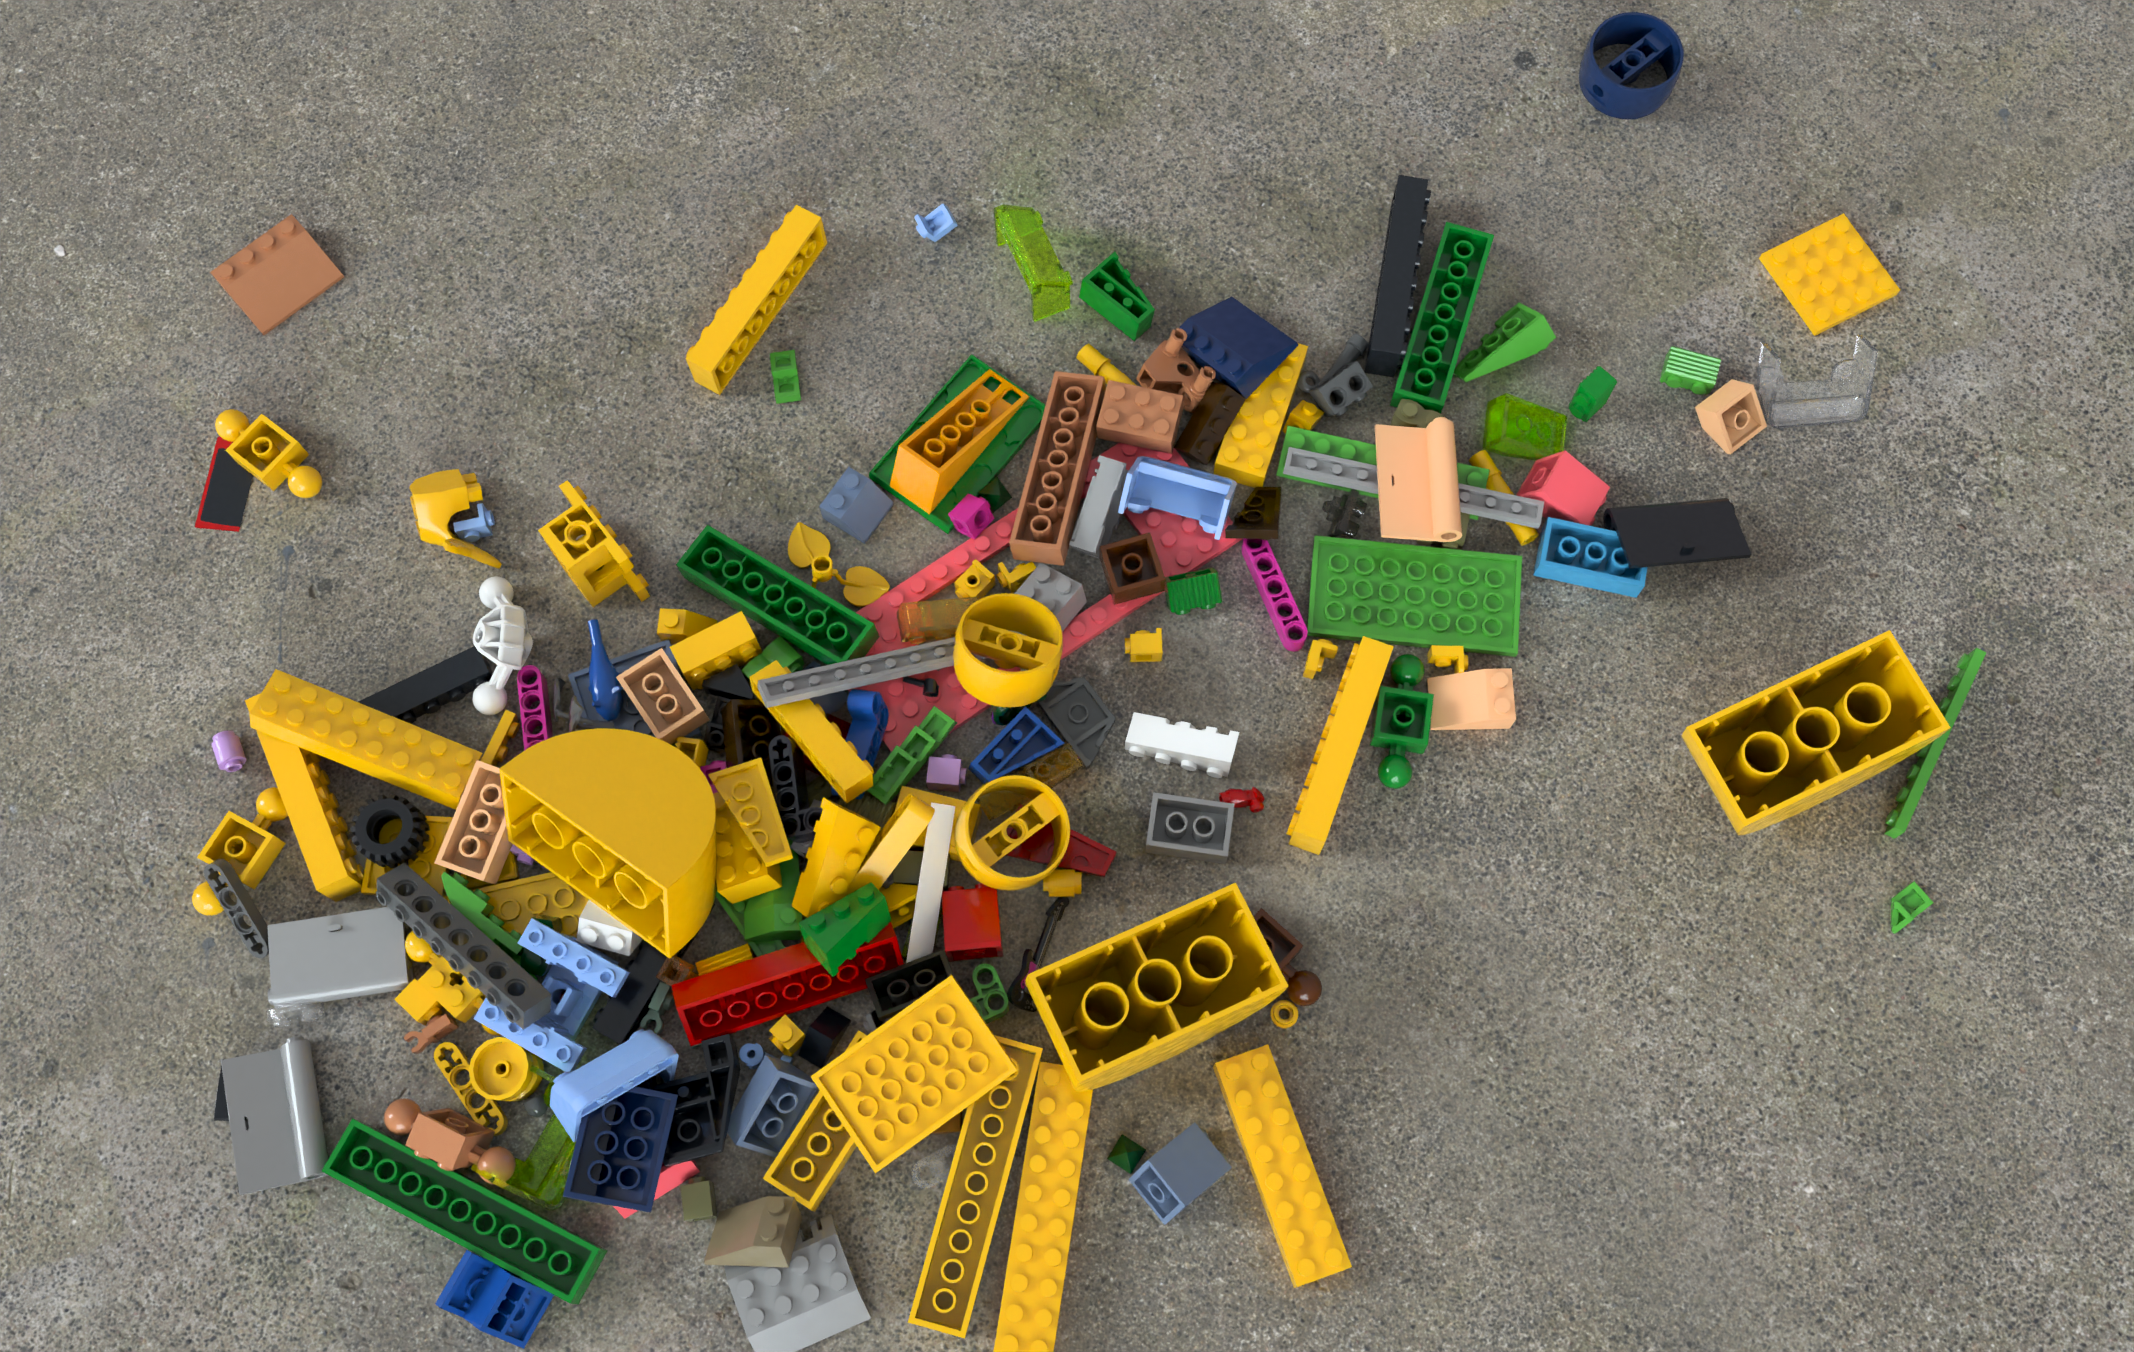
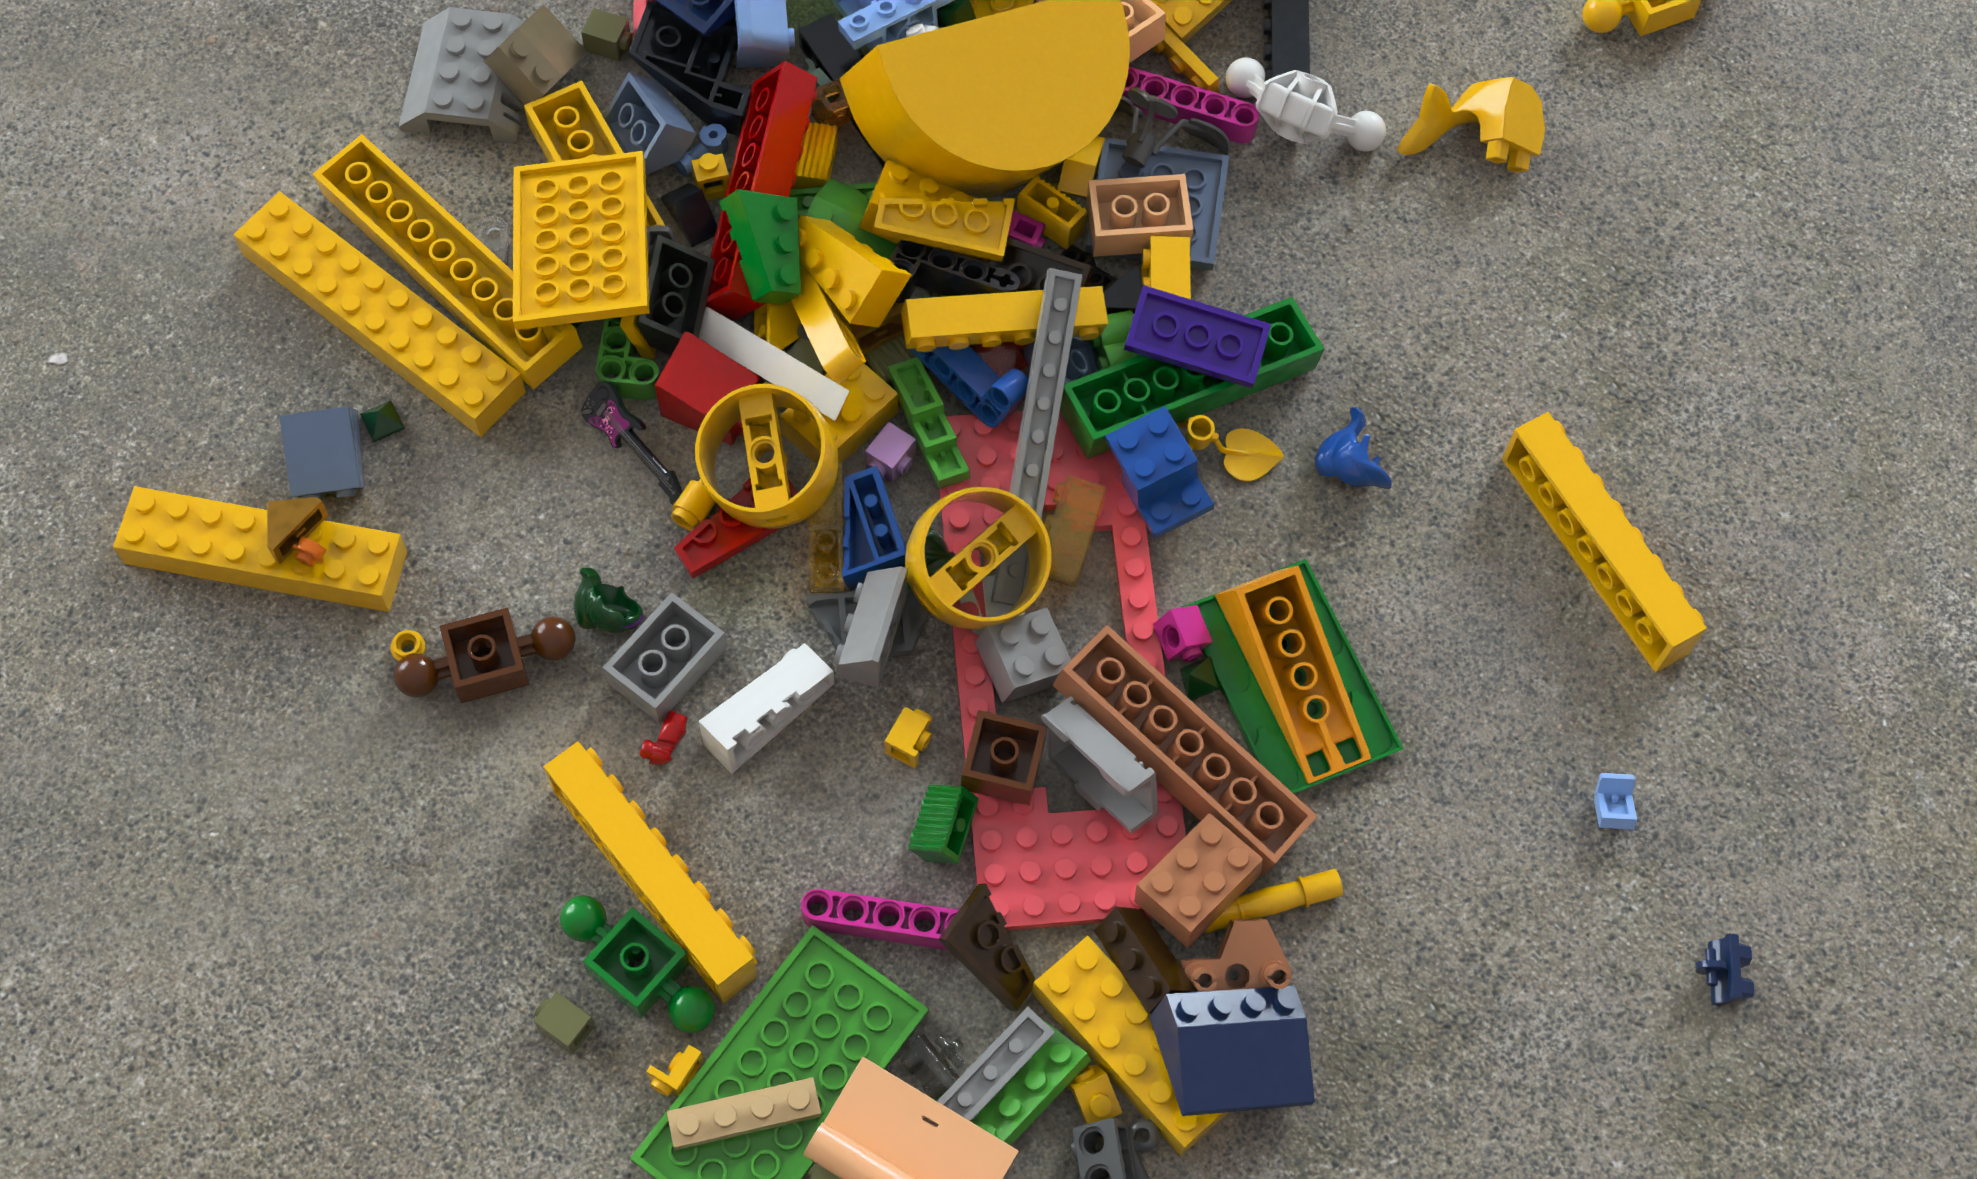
camera: 115 degrees right, 5 degrees down
(277, 274) = (1893, 88): nougat slope -> none
(475, 528) = (1459, 155): light blue bracket -> none
(590, 552) = (1344, 199): yellow piece -> none
(602, 674) = (1202, 176): blue piece -> none
(681, 624) = (1222, 279): yellow slope -> none
(753, 597) = (1197, 336): none -> dark purple plate
(780, 483) = (1348, 459): none -> blue piece
(785, 376) = (1486, 536): bright green slope -> none
(855, 505) = (1270, 522): sand blue slope -> none
(867, 578) = (1159, 472): none -> blue bracket
(930, 686) = (996, 480): black hand -> none
(979, 573) = (1098, 607): yellow brick -> none
(1008, 124) = (1723, 970): none -> dark blue hips
(1016, 577) = (1080, 635): yellow bracket -> none
(1035, 258) = (1495, 864): clear neon green windscreen -> none
(1090, 698) = (872, 626): none -> light grey slope
(1117, 298) = (1390, 958): green wedge -> none
(1156, 989) = (498, 472): yellow brick -> none
(1174, 887) = (604, 605): none -> dark green hair
(1178, 491) = (1081, 875): light blue windscreen -> none
(1262, 1136) = (290, 521): none -> pearl gold slope
(1273, 1109) = (308, 552): none -> orange plate
(1316, 655) = (772, 914): yellow bracket -> none
(1449, 601) = (743, 1113): none -> tan plate
(1464, 744) = (563, 1022): none -> olive brick
(1473, 700) = (609, 1067): light nougat slope -> none

